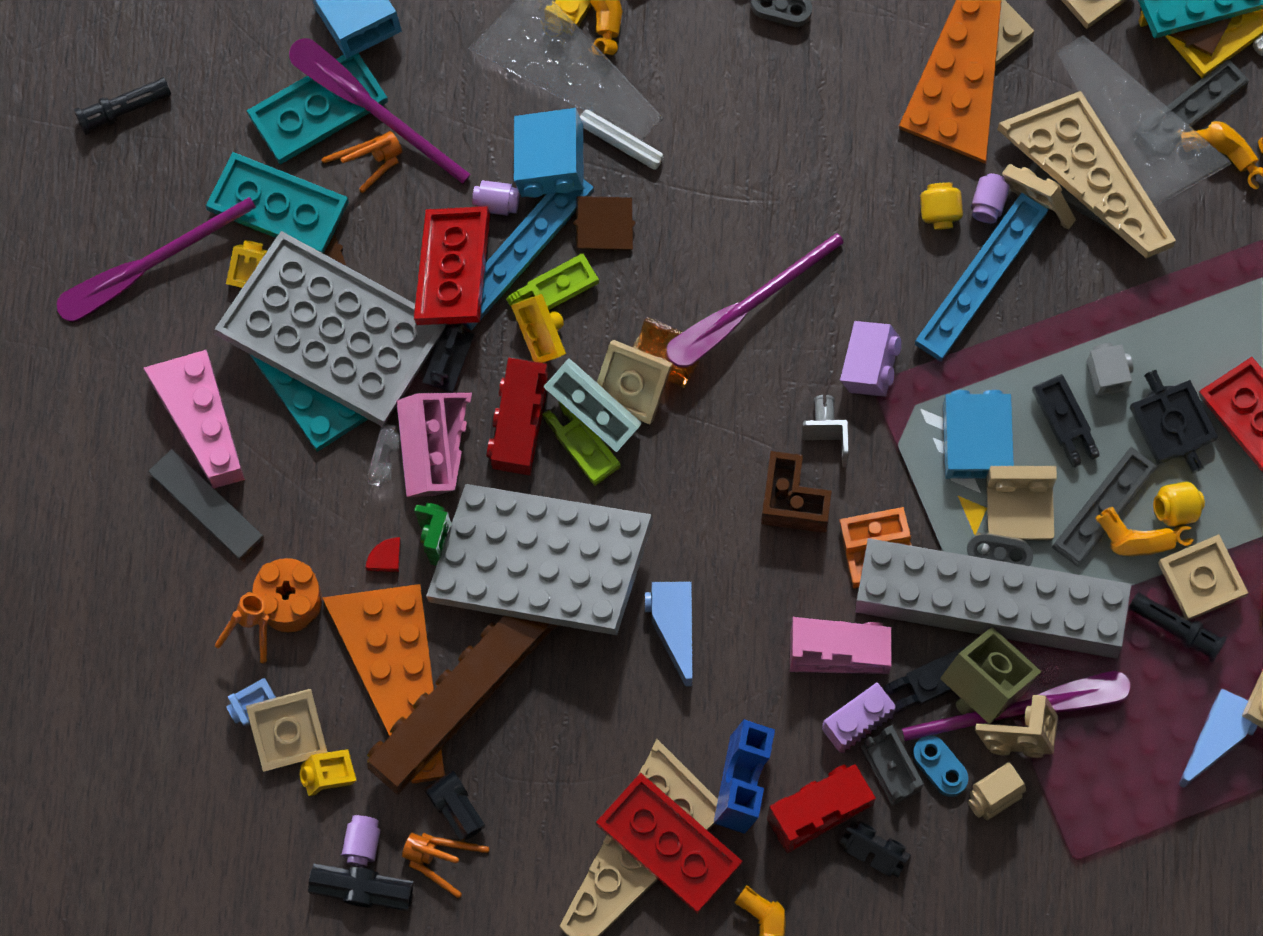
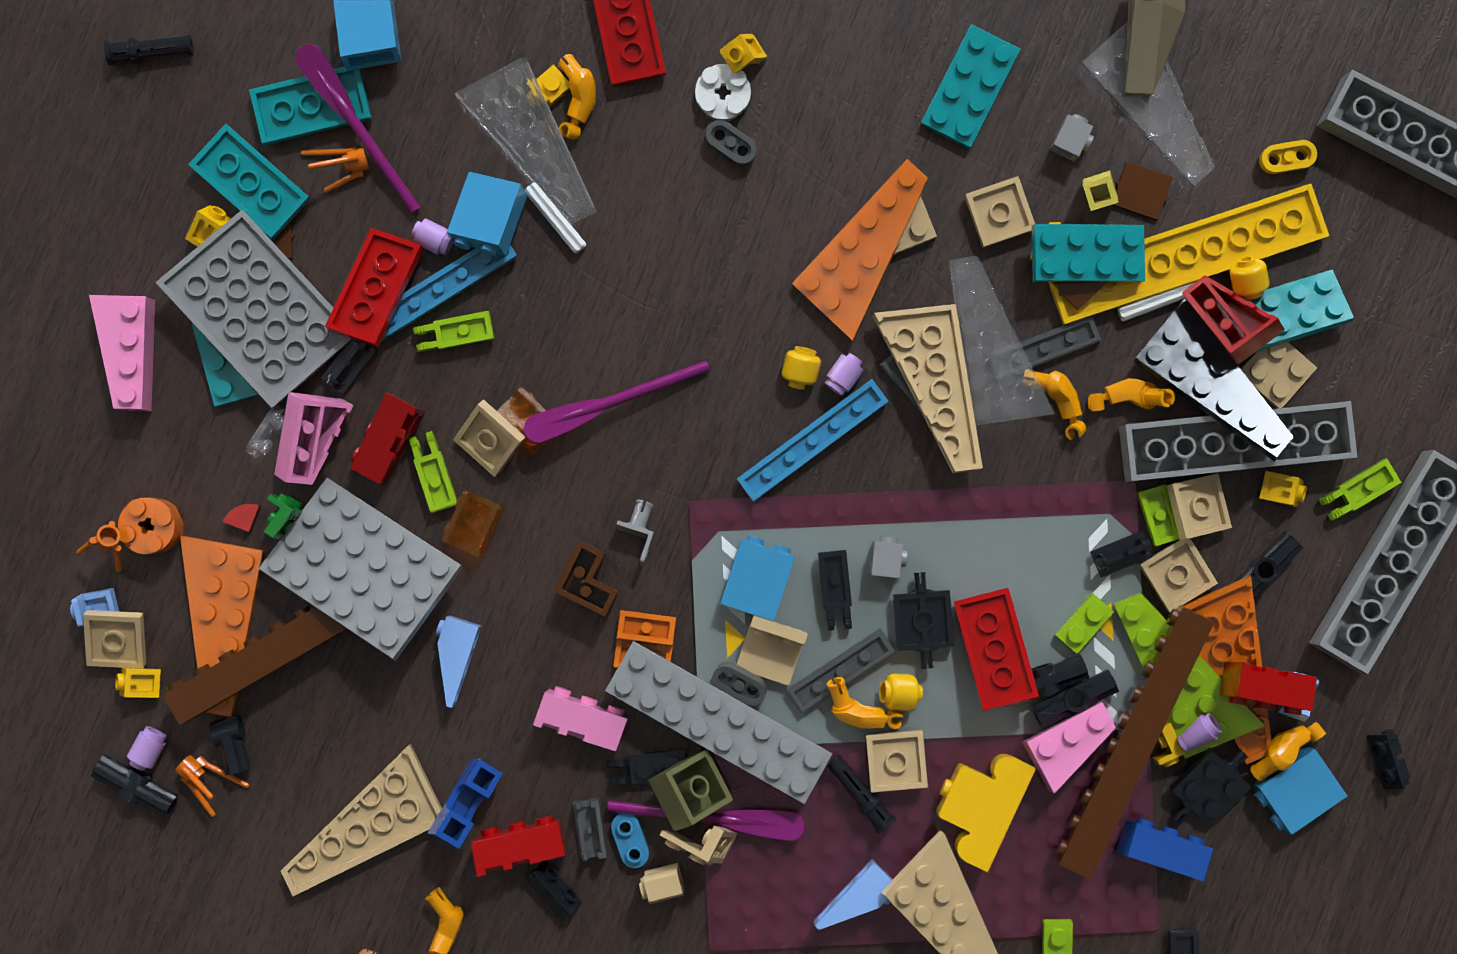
camera: 15 degrees right, 15 degrees up
(104, 287) = (81, 208): magenta piece -> none
(206, 504) = (111, 424): dark grey tile -> none
(539, 328) = (428, 366): yellow tile -> none
(592, 405) = (448, 450): light aqua brick -> none
(604, 223) = (515, 289): reddish brown piece -> none
(644, 479) = (472, 523): none -> clear orange bracket
(669, 843) = (387, 837): red plate -> none
(858, 717) = (576, 782): lavender brick -> none
(870, 358) = (693, 483): lavender brick -> none
(1043, 192) = (890, 389): tan wing -> none

